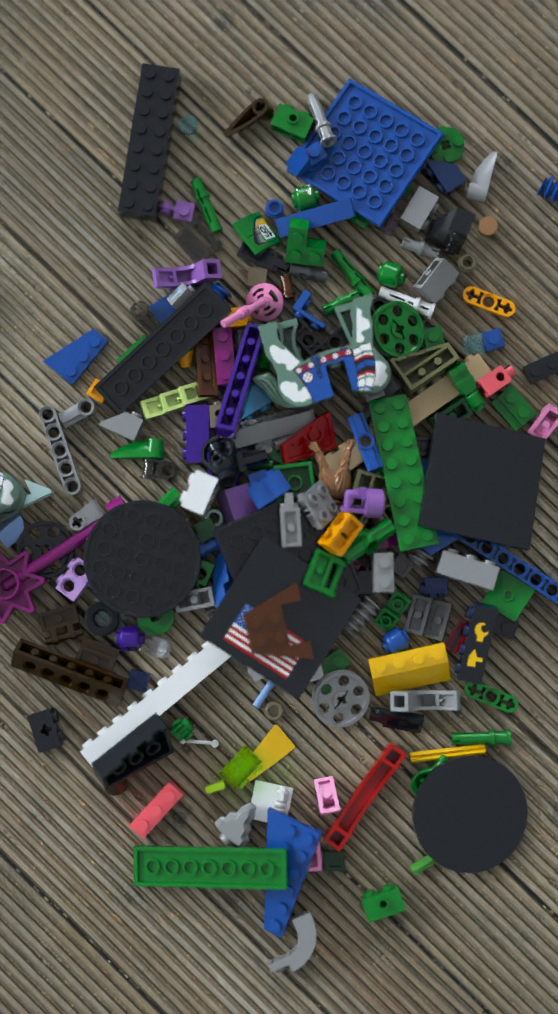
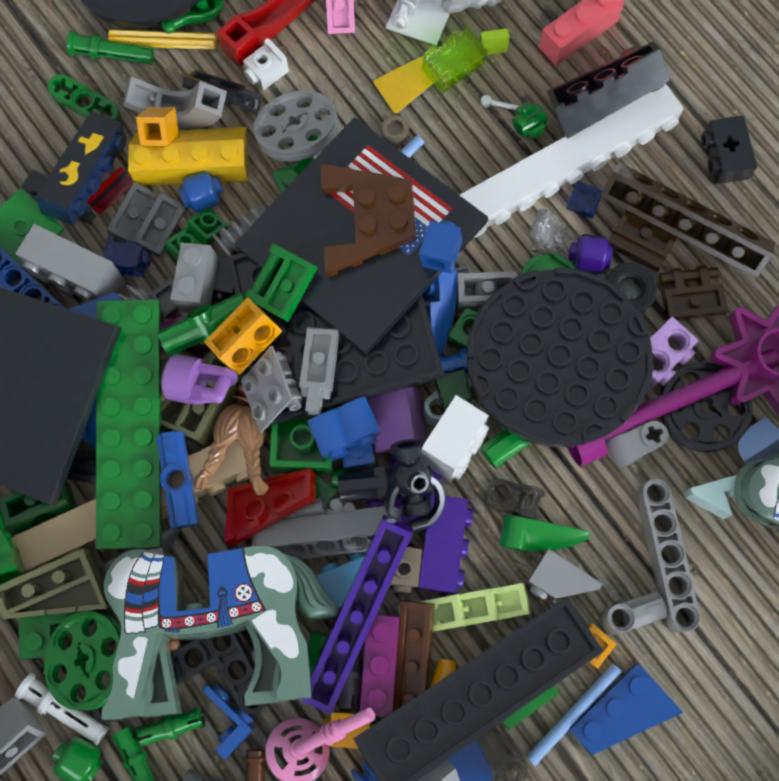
camera: 175 degrees left, 10 degrees down
(106, 350) = (573, 714): none -> light blue bar
(225, 608) = (441, 246): none -> blue brick
(363, 743) = (265, 65): none -> white brick
(431, 677) = (157, 126): none -> light orange brick

